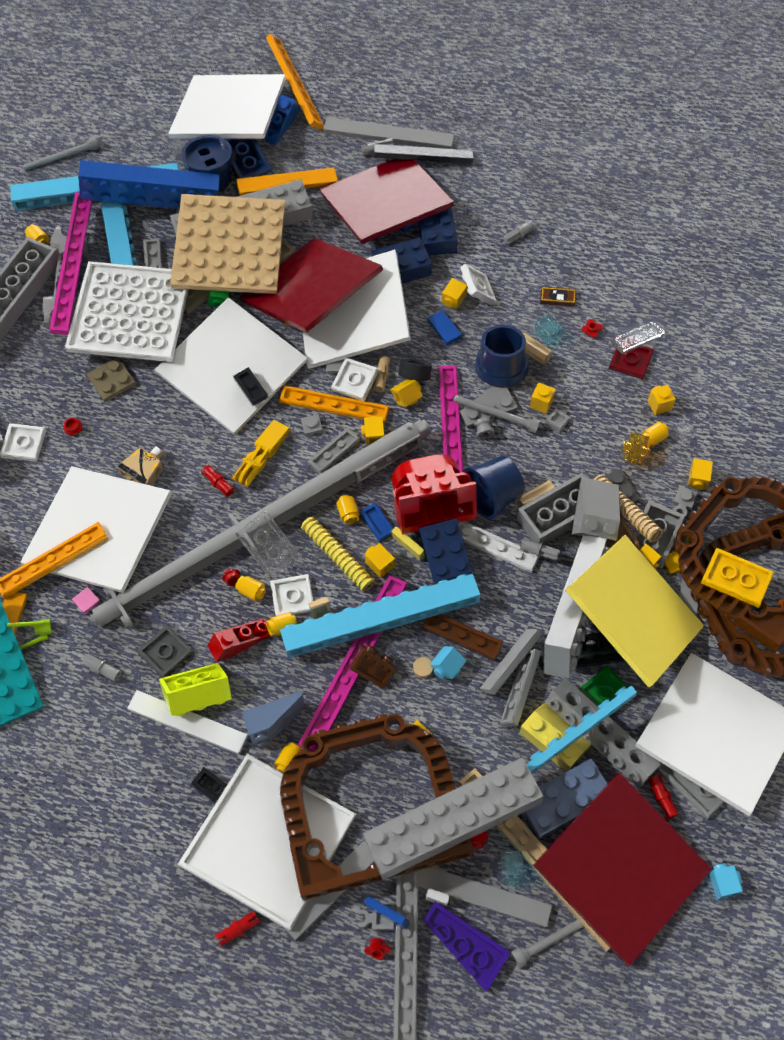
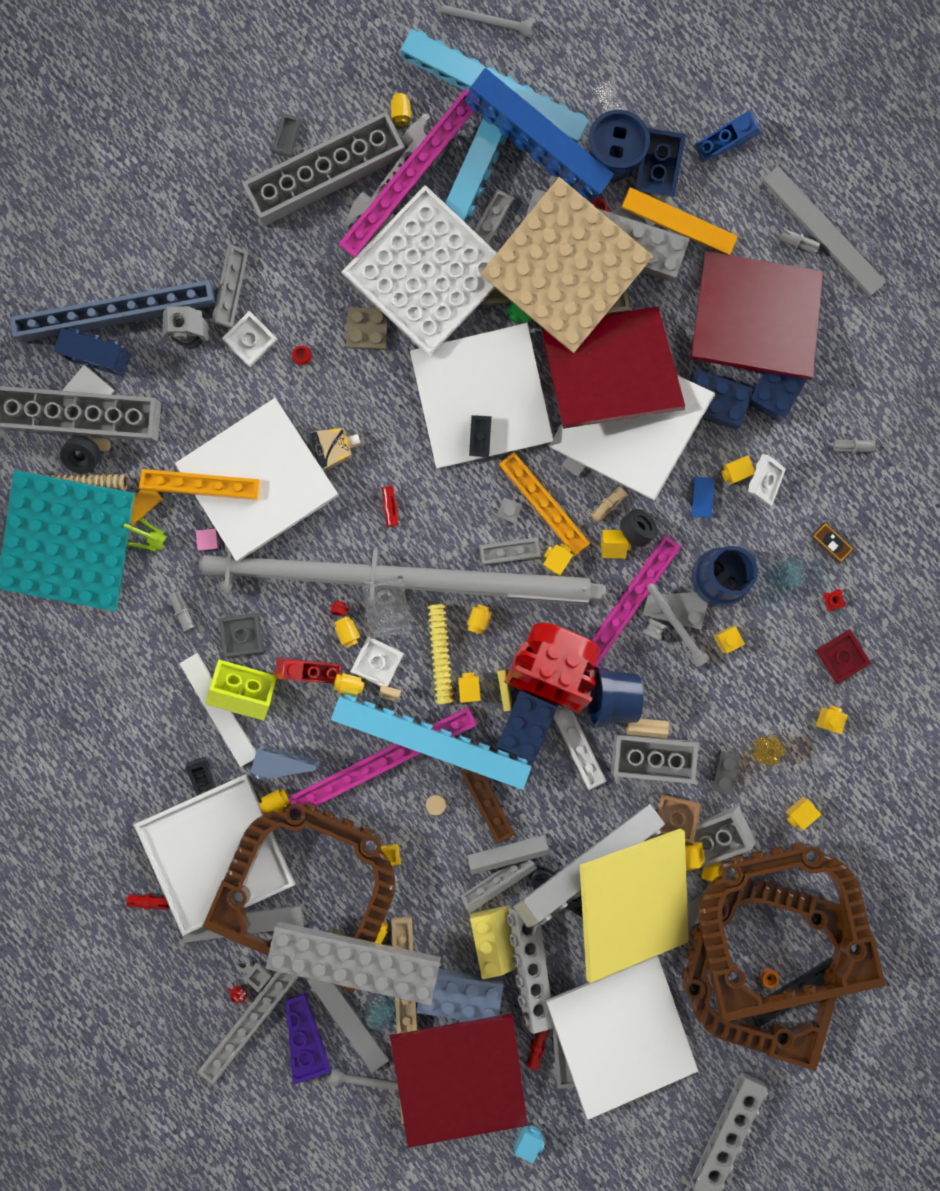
camera: 35 degrees right, 25 degrees up
(228, 106) = (687, 84): white tile -> none
(255, 461) = (455, 504): yellow arm -> none
(295, 82) = (779, 94): light orange tile -> none
(354, 379) = (579, 495): white tile -> none
(373, 666) = (395, 777): reddish brown bracket -> none
(377, 522) = (496, 648): blue tile -> none
(387, 912) = (259, 981): blue tile -> none
(423, 154) = (836, 285): tile -> none
(436, 896) = (308, 993): white tile -> none
(448, 663) = (455, 819): medium azure brick -> none
(537, 350) = (765, 583): tan axle -> none
(539, 549) = (608, 780): light grey axle -> none
(557, 420) = (726, 667): light grey tile -> none
(574, 733) = (501, 964): medium azure plate -> none
(597, 510) = (680, 791): light grey slope -> none
(603, 687) = (563, 935): green tile -> none
(635, 516) = (710, 798): tan piece -> none
(637, 337) = (866, 642): clear tile -> none
(656, 433) = (797, 747): yellow brick -> none
(684, 500) = (769, 823): light grey plate -> none
(737, 577) = (741, 942): yellow tile -> none

